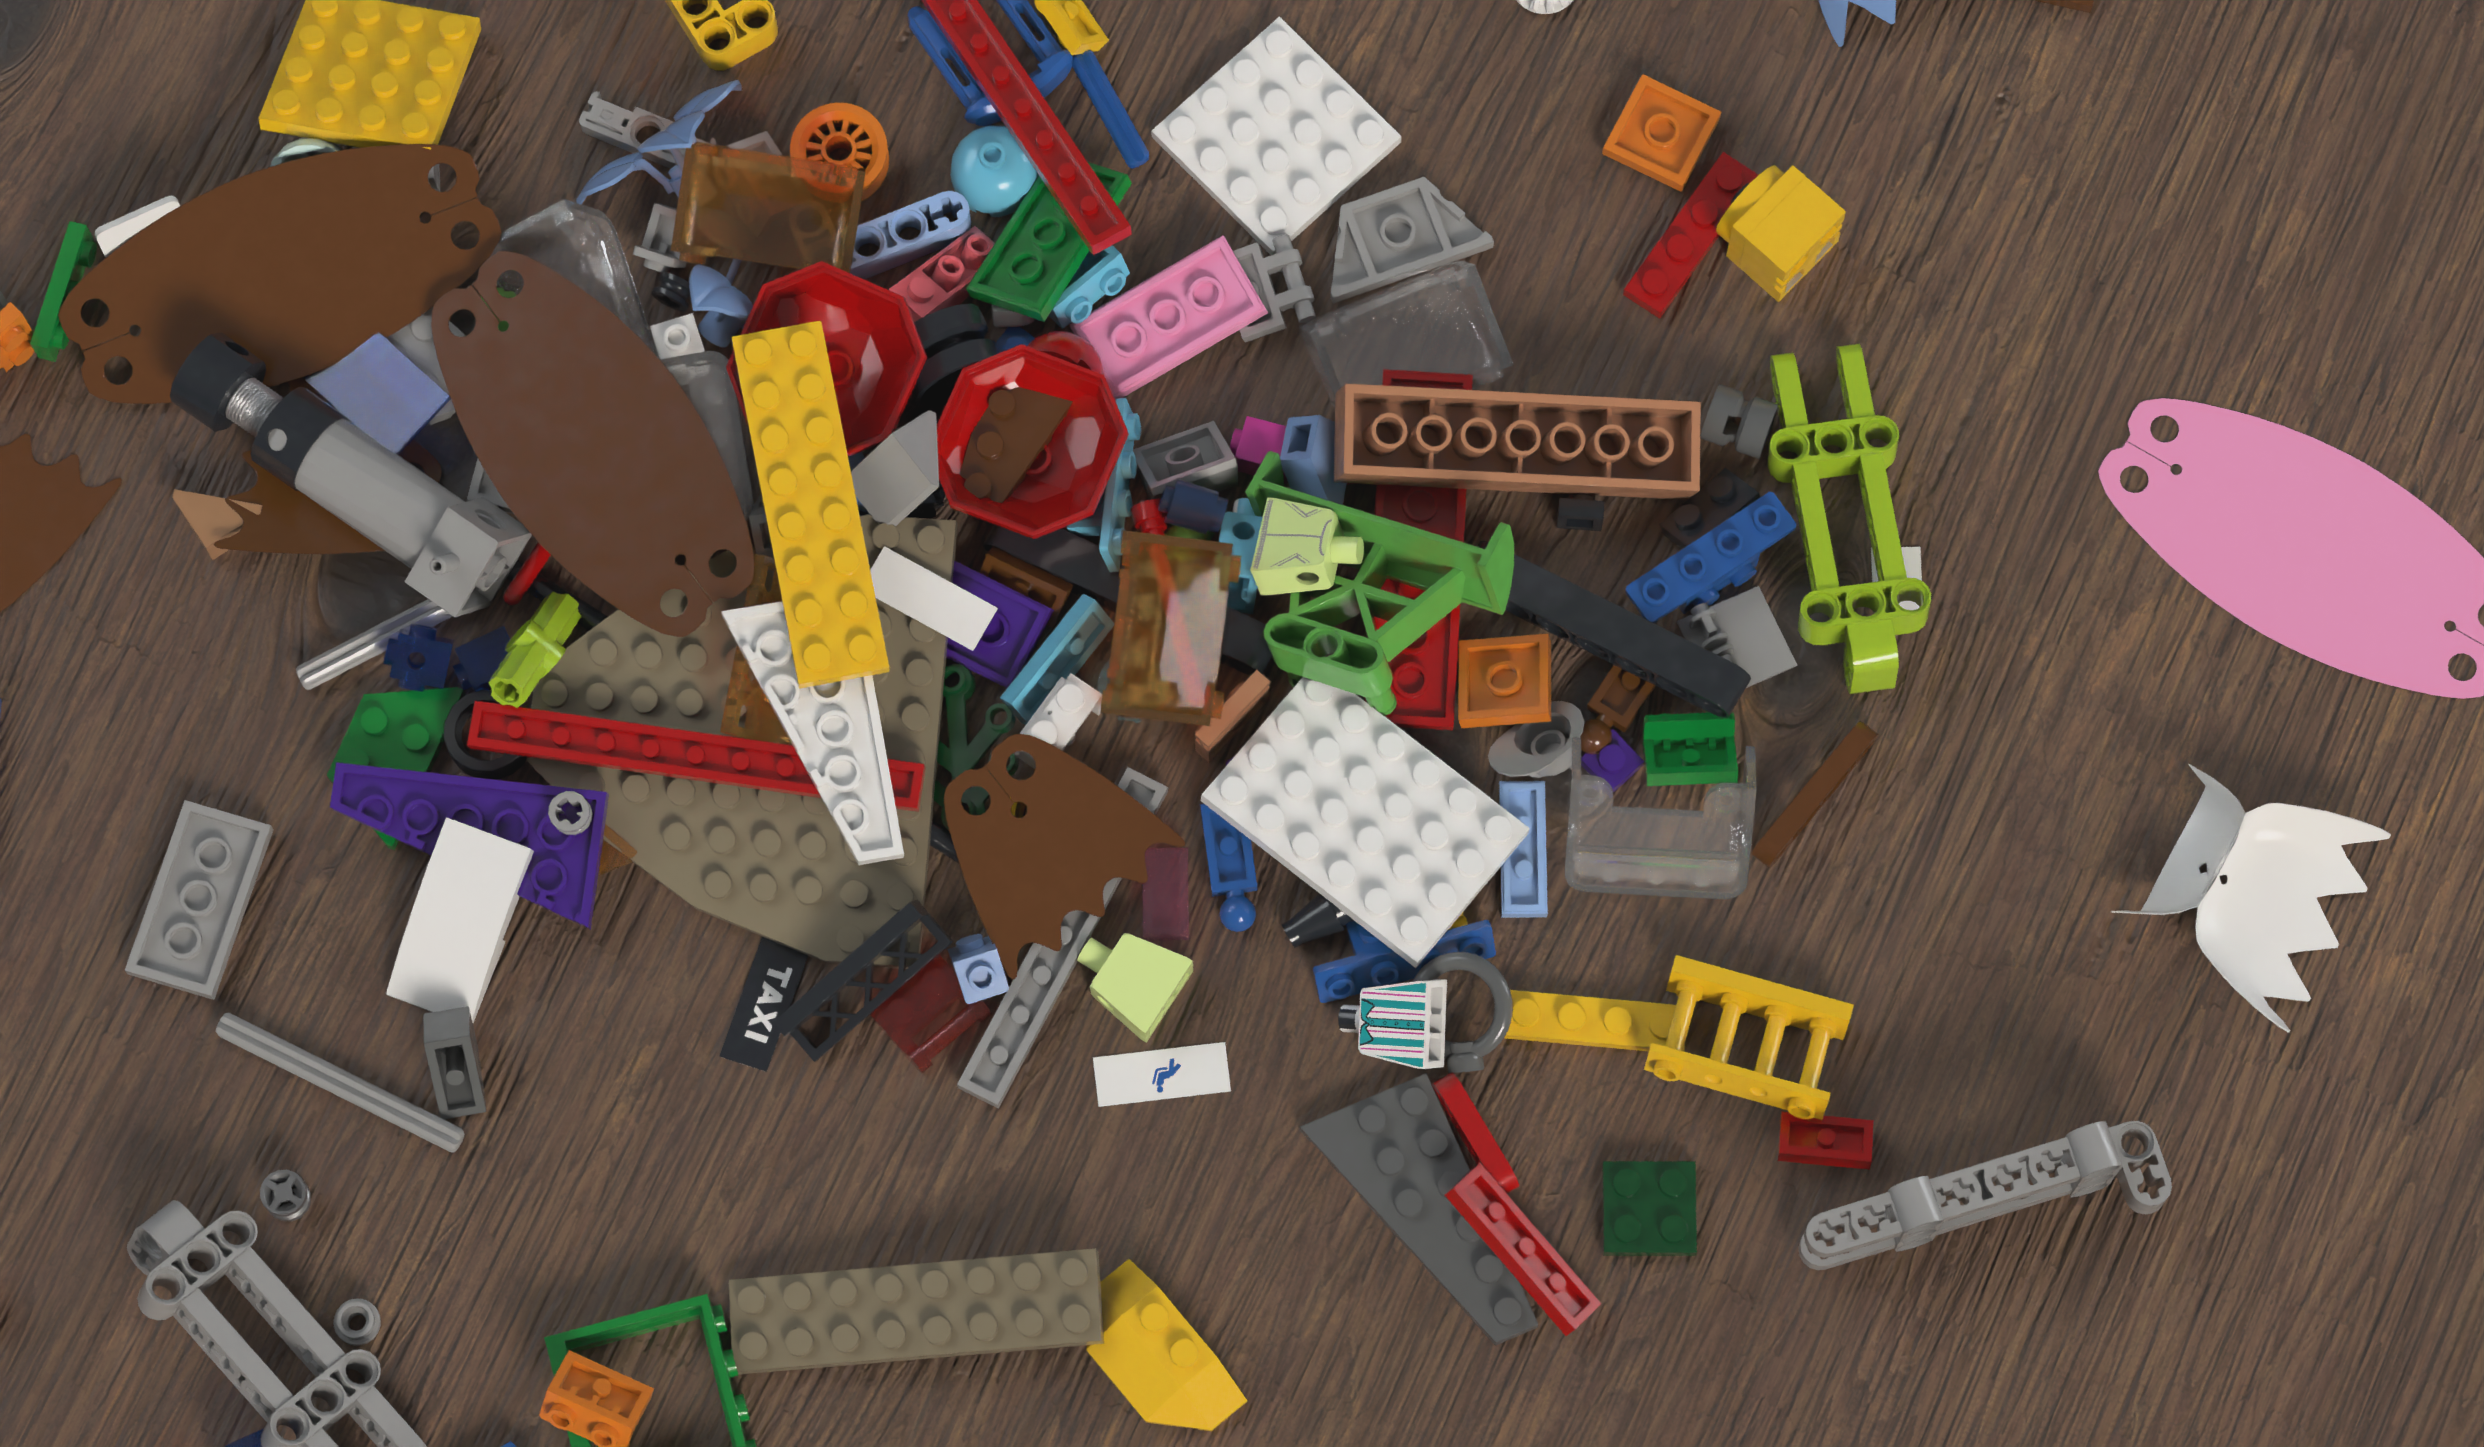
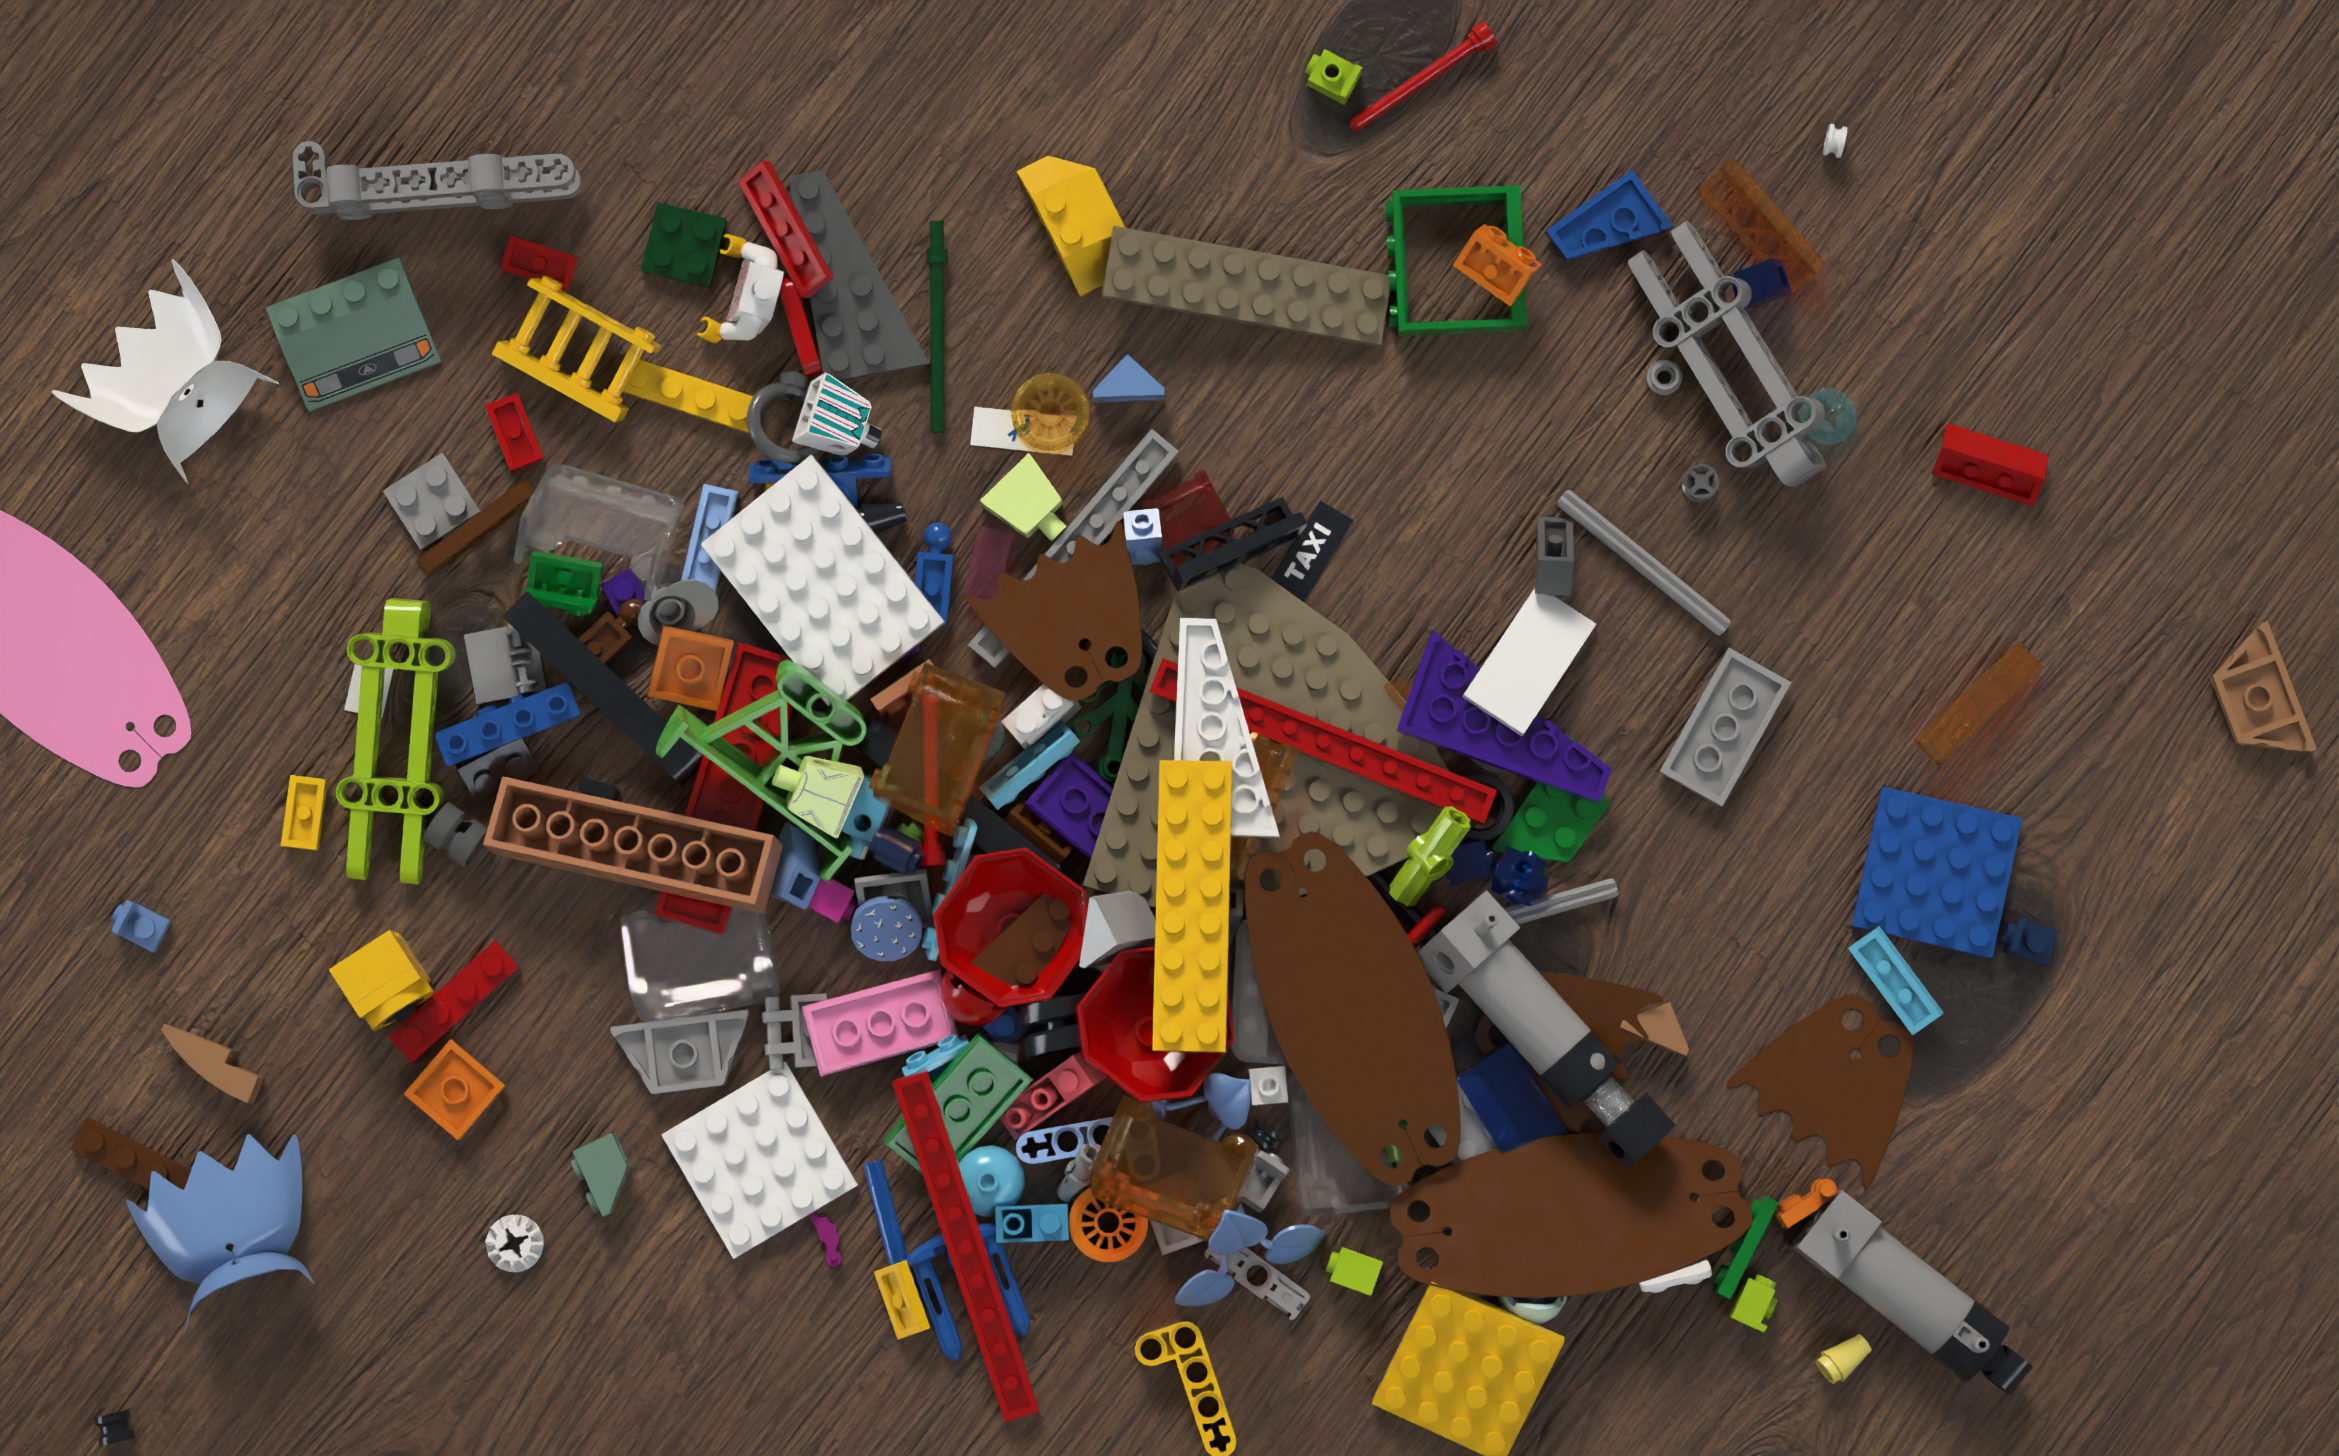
camera: 165 degrees left, 10 degrees up
(41, 229) = (1754, 1302): none -> lime brick
(130, 1342) = (1844, 422): none -> clear light blue gear
(531, 162) = (1354, 1270): none -> lime brick
(575, 800) = (1432, 706): light grey bush -> none
(885, 193) = (1078, 1173): none -> light grey pin
(927, 129) = (1032, 1223): none -> dark azure slope
(930, 598) = (1116, 824): white sticker -> none
(1040, 1155) = (1127, 384): none -> medium blue slope
(1103, 1067) = (1065, 386): none -> clear yellow wheel
(1172, 69) = (829, 1236): none -> magenta piece
(1186, 425) = (886, 928): none -> medium blue tile
(1321, 1263) = (937, 258): none -> dark green bar
(1460, 82) = (605, 1171): none -> sand green slope
(1542, 1159) = (753, 296): none -> white torso
(1800, 923) = (514, 432): none -> red plate
(1880, 817) = (432, 501): none -> light grey plate
(1933, 409) = (304, 812): none -> yellow plate
(1960, 98) = (214, 1063): none -> medium nougat slope
(2036, 998) = (354, 334): none -> sand green piece
(2093, 238) = (139, 925): none -> medium blue bracket

